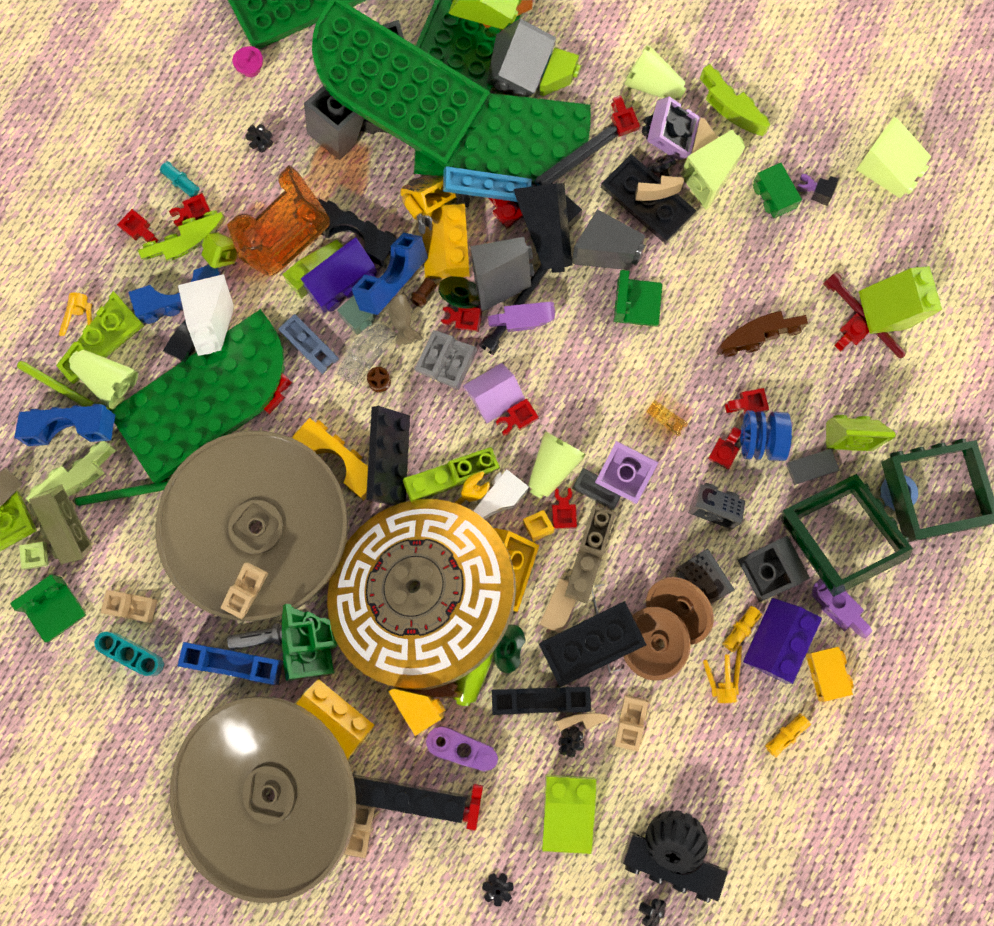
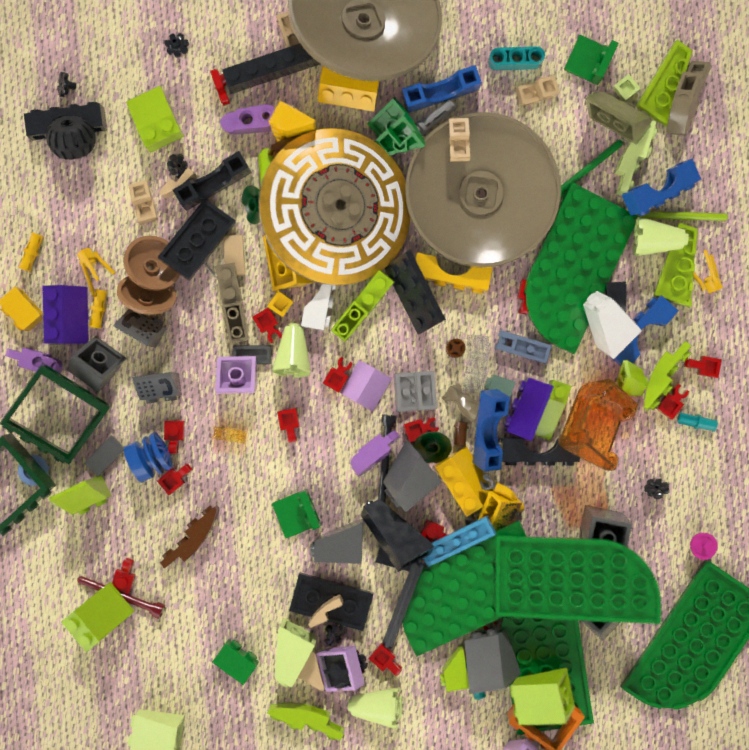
camera: 155 degrees right, 10 degrees up
(470, 489) = (339, 301): yellow hand -> none
(595, 397) = (288, 421): none -> red plate
(822, 189) = (201, 682): black piece -> none

